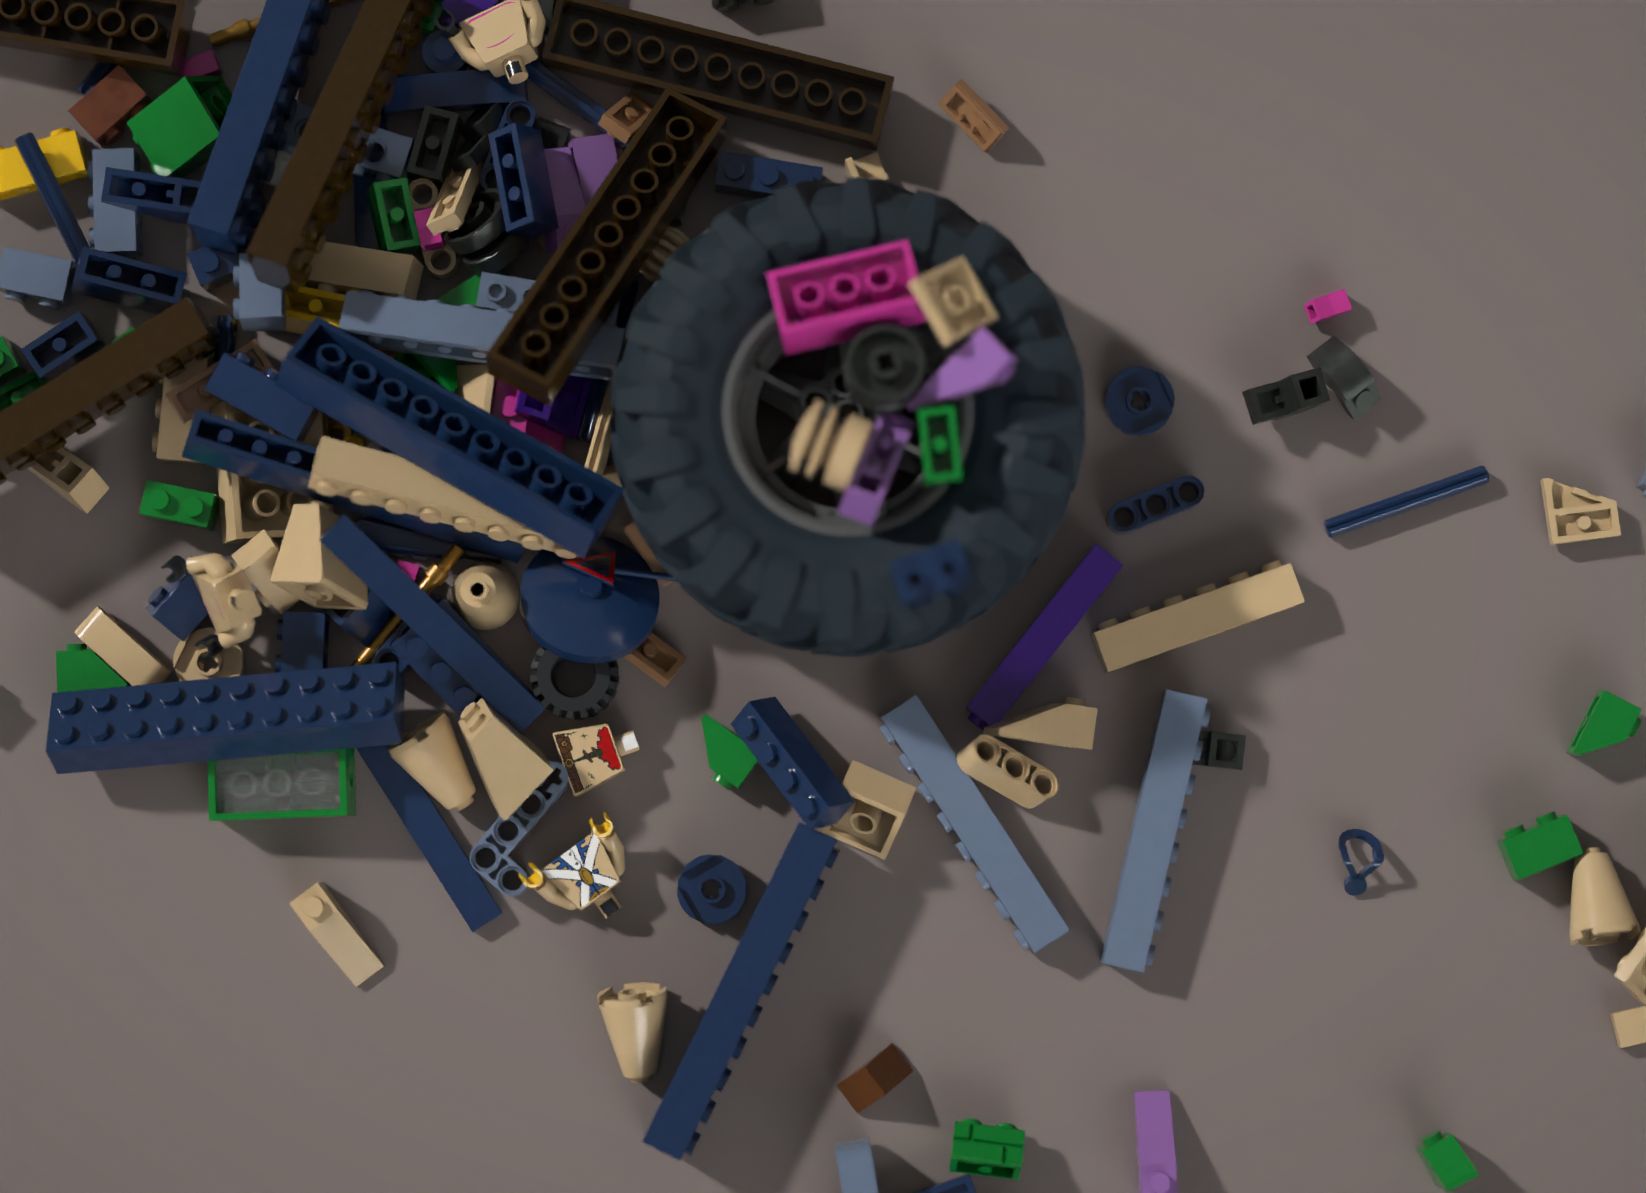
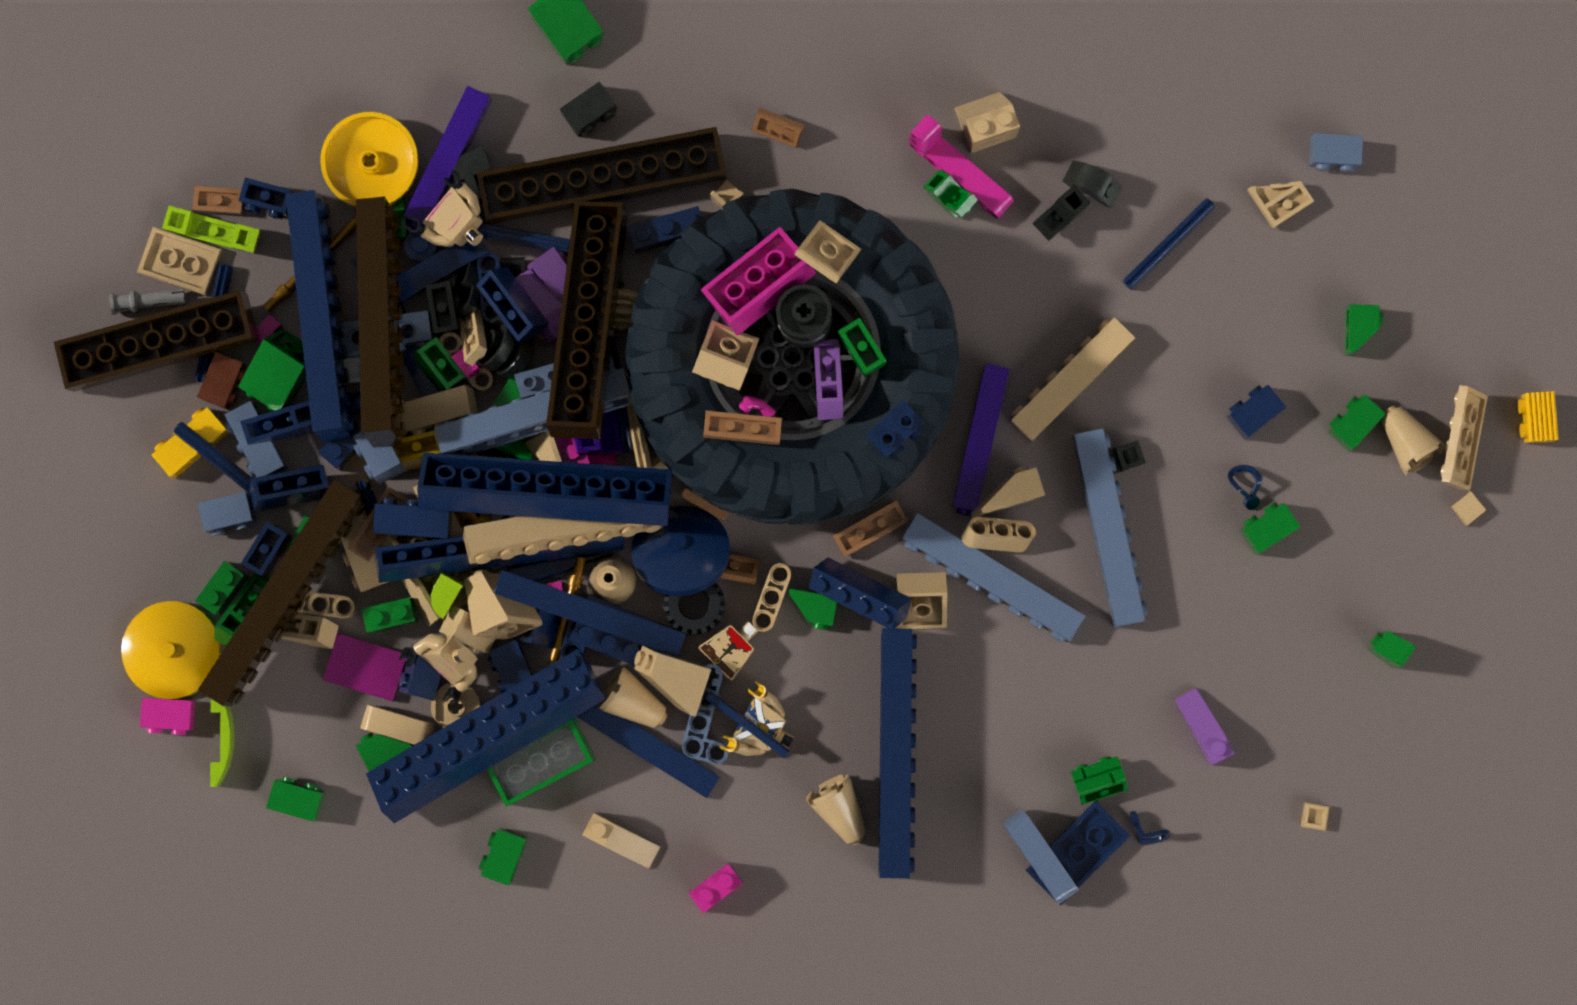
camera: 25 degrees left, 0 degrees up
(113, 458) = (332, 606): none -> tan beam
(116, 556) = (364, 667): none -> magenta tile
(177, 882) = (503, 856): none -> green brick
(259, 510) = (444, 593): none -> lime brick
(428, 1052) = (715, 887): none -> dark pink brick
(568, 862) = (747, 724): none -> dark blue bar
(603, 569) = (681, 527): piece -> none
(625, 117) = (557, 232): medium nougat plate -> none
(661, 721) = (778, 587): none -> tan beam
(707, 908) = (848, 712): dark blue plate -> none
(735, 476) = (742, 427): none -> medium nougat plate
(758, 373) = (725, 355): none -> tan slope
(770, 457) = (758, 404): none -> dark pink arm
(830, 445) = (793, 379): tan wheel -> none
(847, 686) = (870, 529): none -> medium nougat plate
(875, 1078) = (1006, 769): reddish brown slope -> none
(972, 368) = (860, 288): medium lavender slope -> none
(1145, 382) = (967, 246): dark blue plate -> none
(1153, 305) = (950, 194): none -> green brick
(1157, 224) = (928, 143): none -> dark pink beam
(1167, 493) = (1016, 310): dark blue beam -> none
(1246, 234) = (987, 121): none -> tan slope
(1327, 306) = (1060, 143): dark pink piece -> none
(1362, 929) = (1269, 528): none -> green brick
(1417, 770) = (1256, 411): none -> dark blue brick

